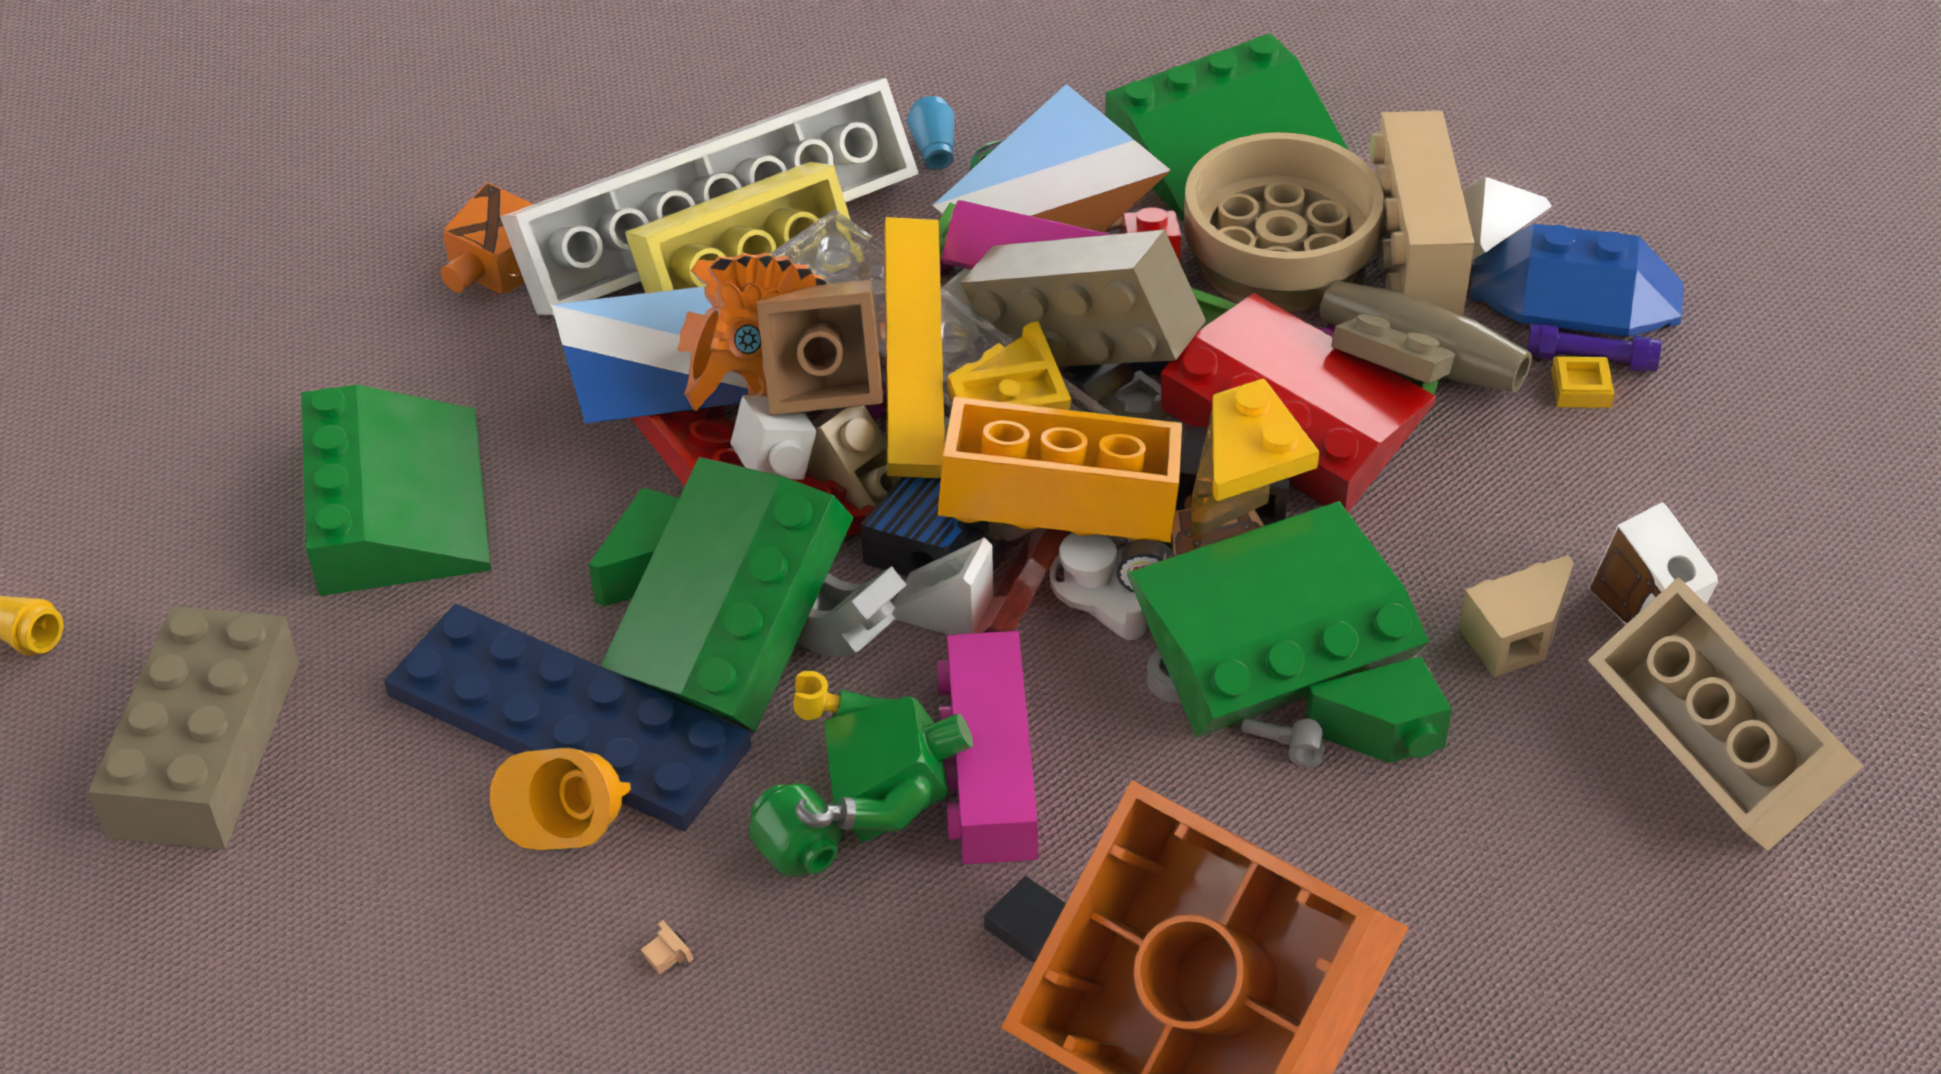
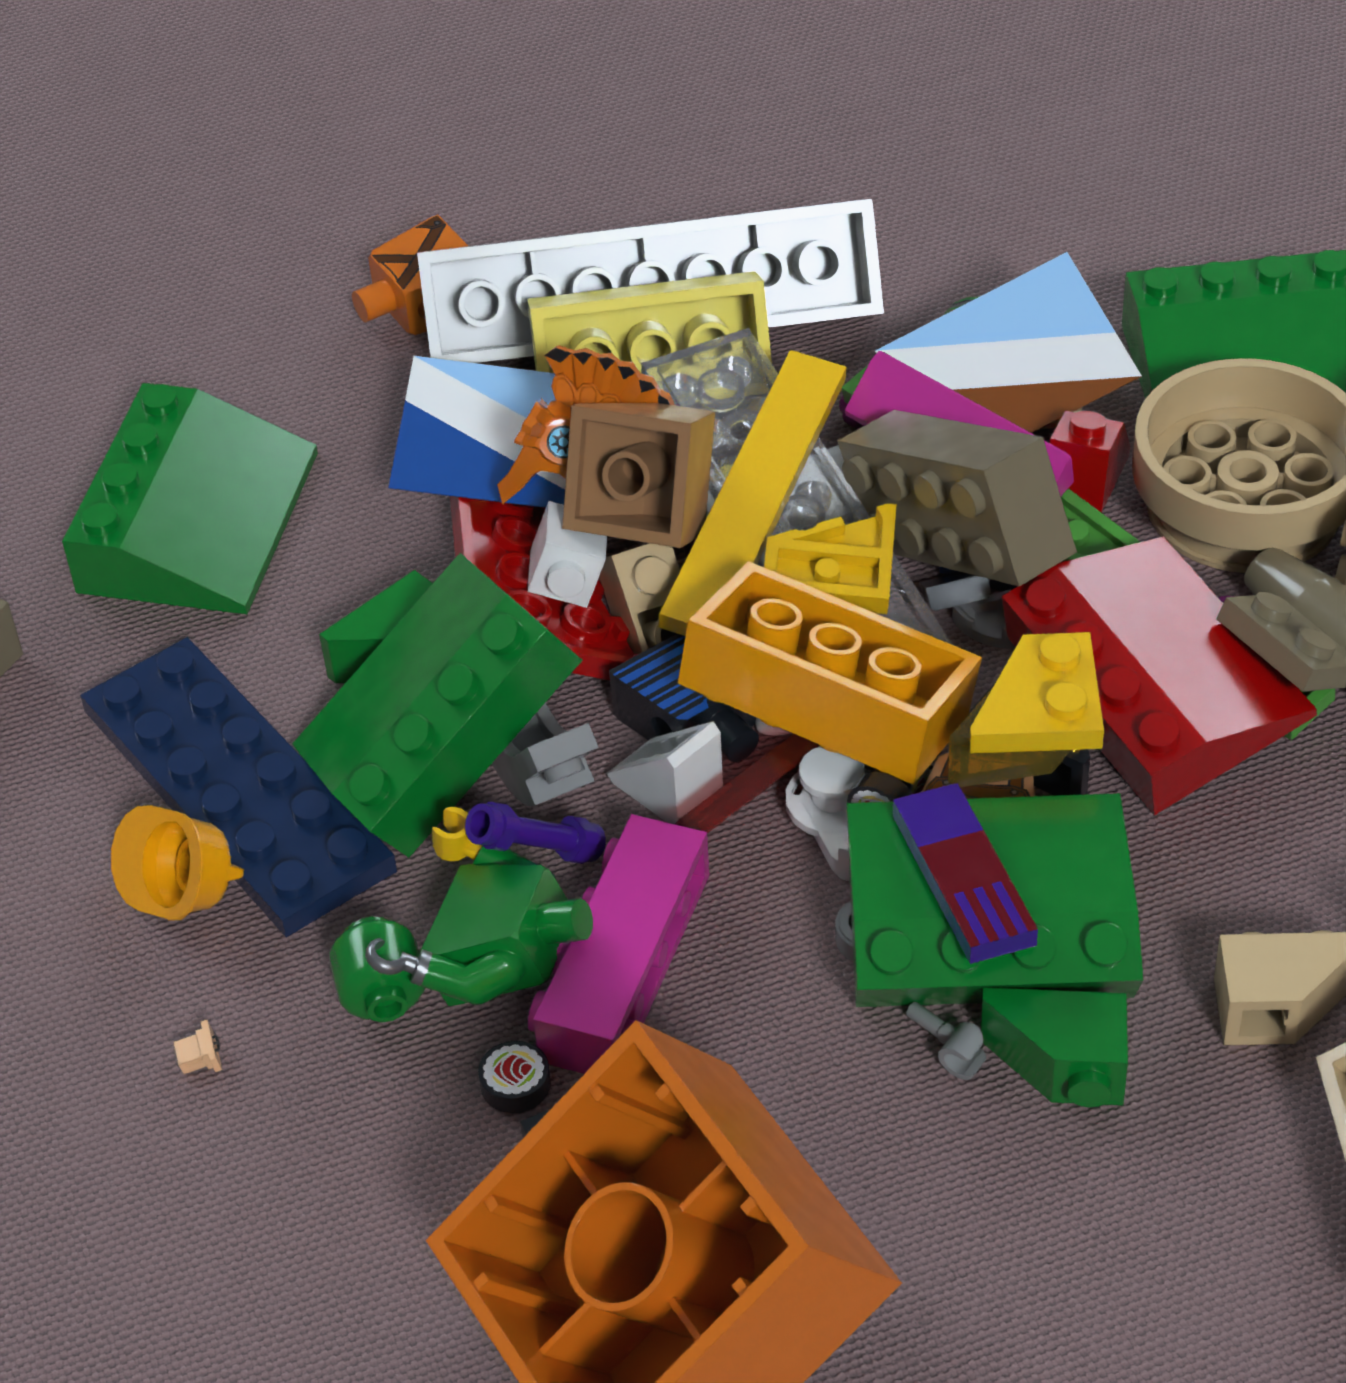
camera: 25 degrees right, 0 degrees up
(855, 676) = (498, 826): none -> dark purple bar
(933, 130) = (931, 270): dark azure cone -> none
(954, 881) = (514, 1076): none -> tile
(1261, 597) = (964, 873): none -> tile

